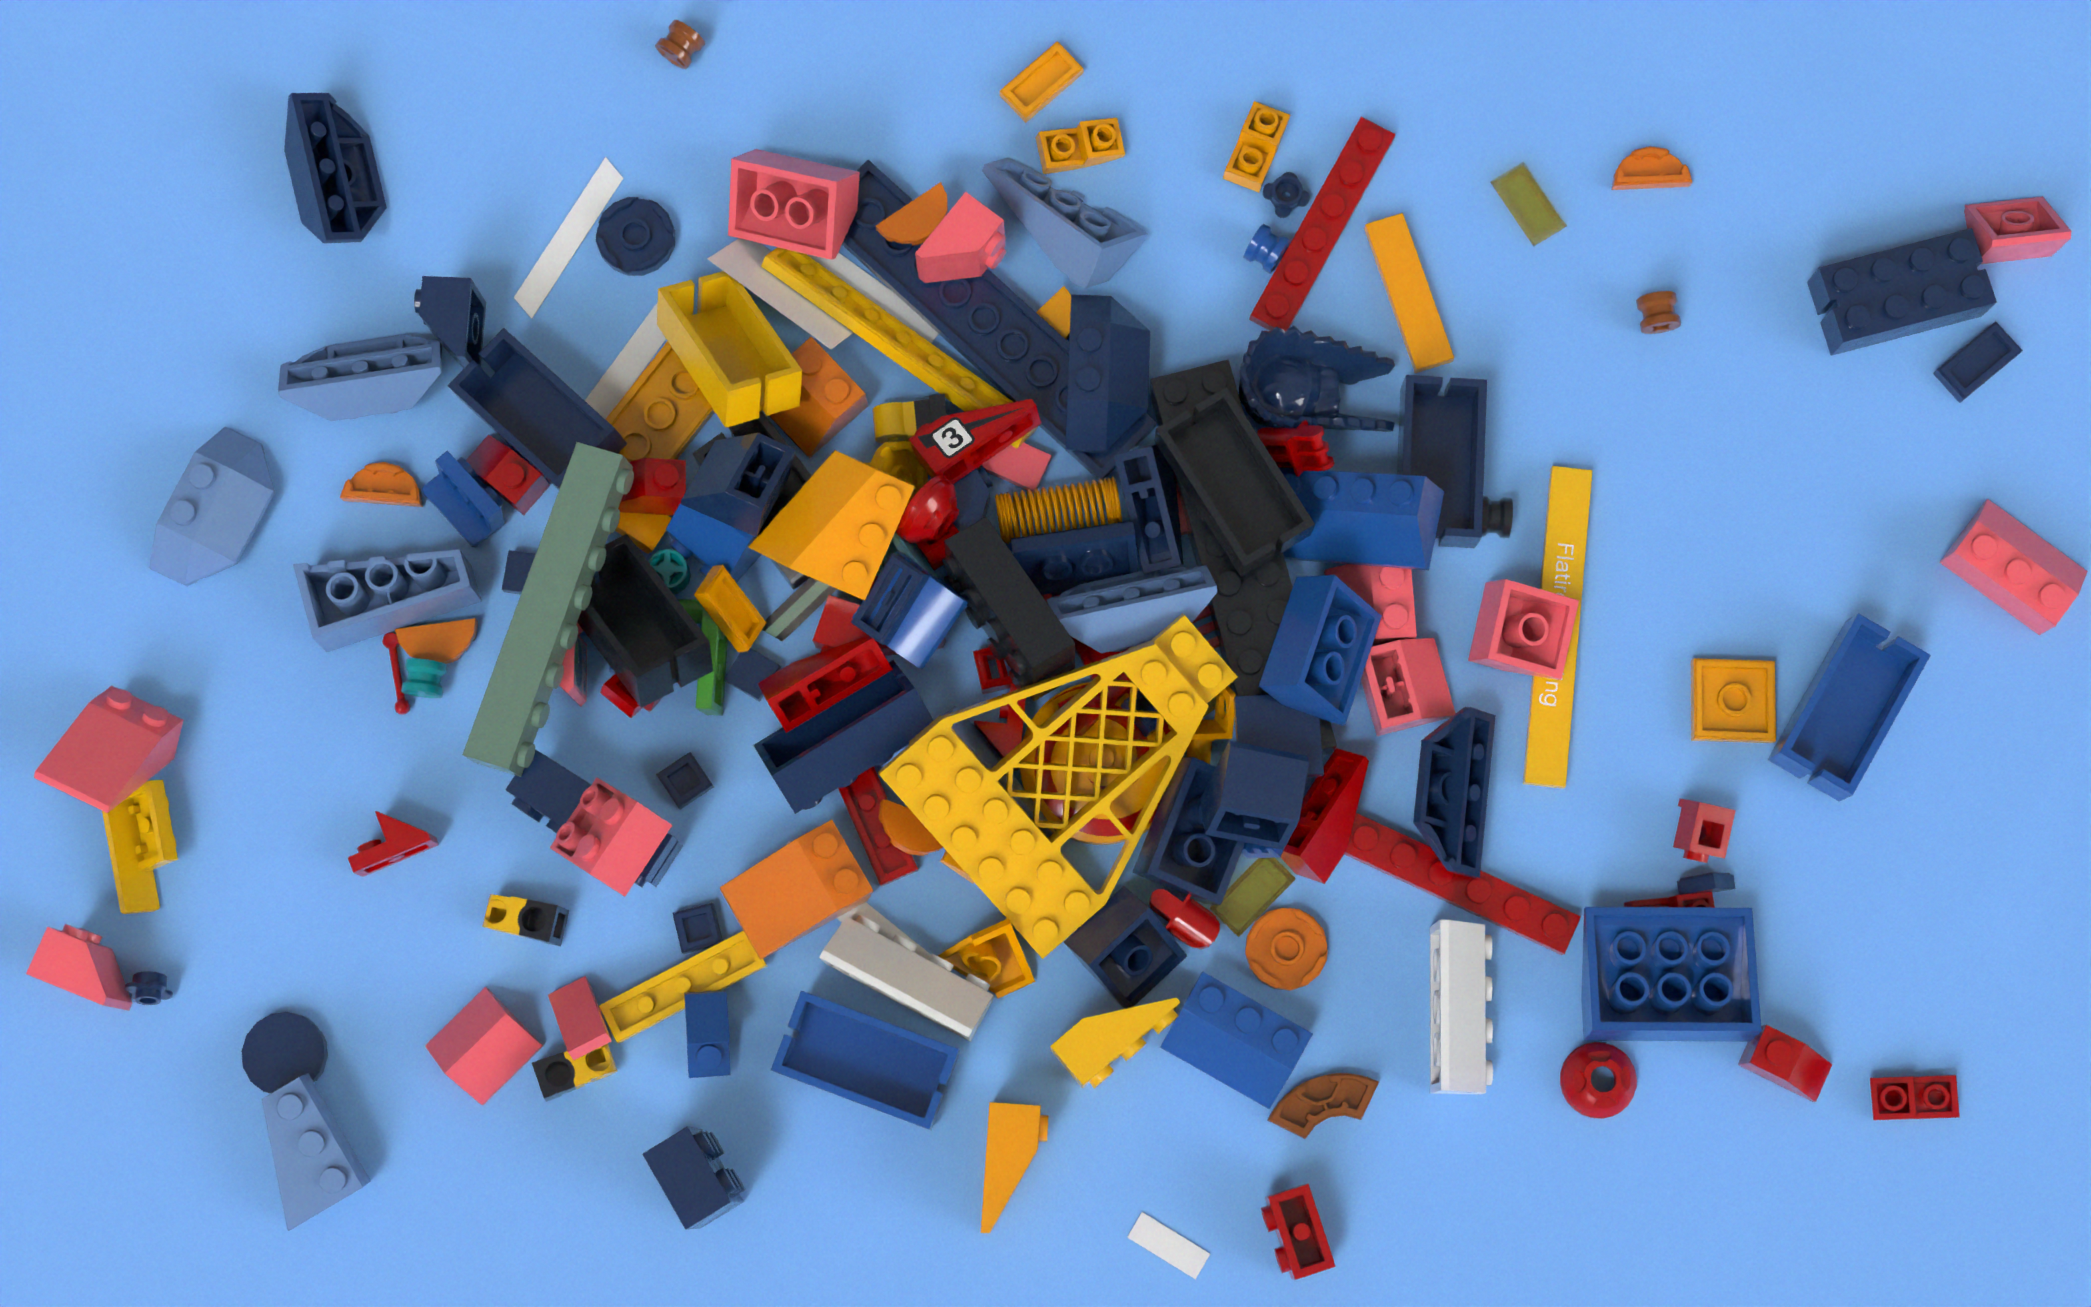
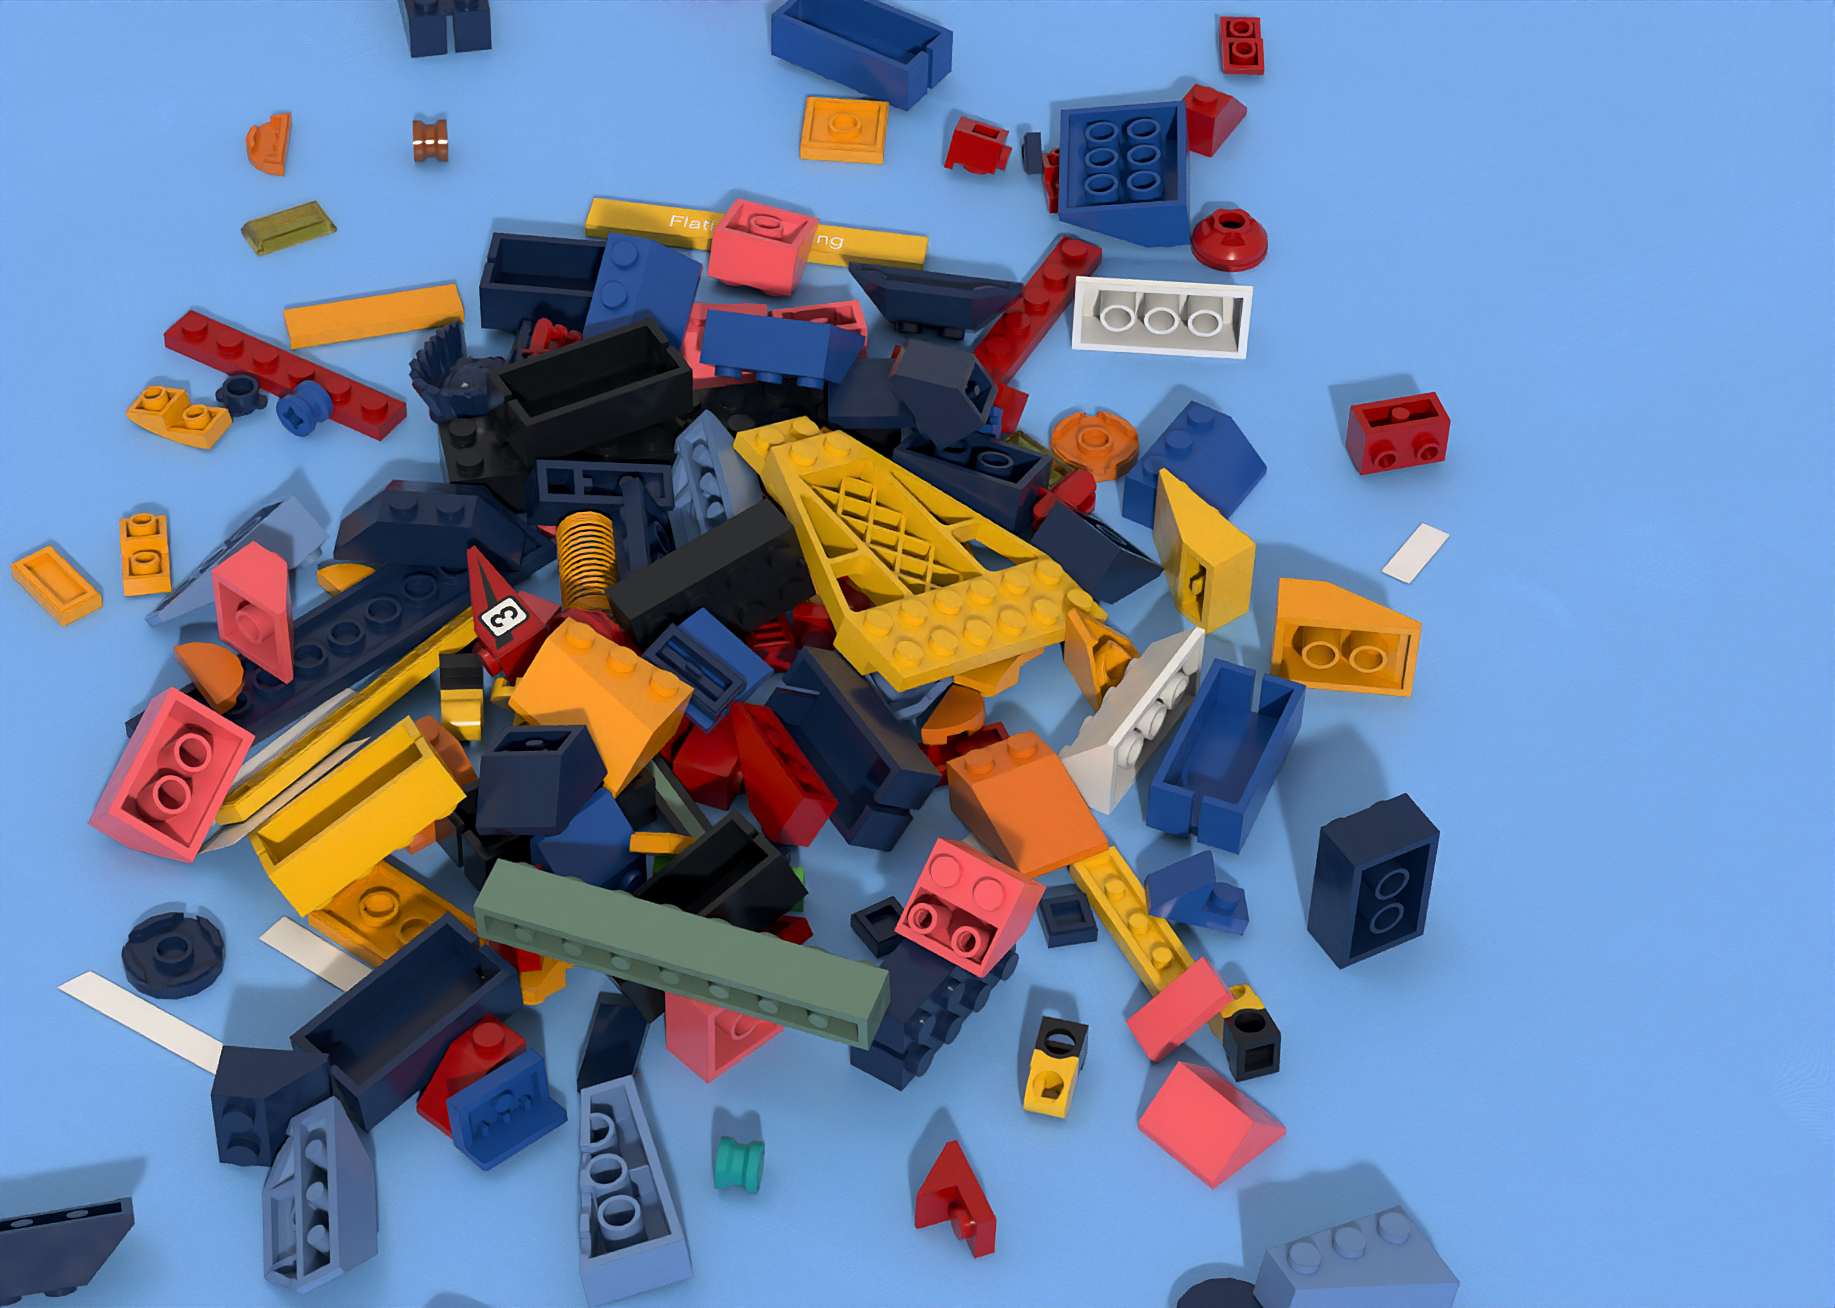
camera: 90 degrees left, 35 degrees down
(382, 485) = (469, 1218): orange tile -> none
(391, 642) = (771, 1200): red hinge -> none
(438, 641) = (689, 1159): orange tile -> none
(1321, 1099) = (1255, 418): dark orange tile -> none

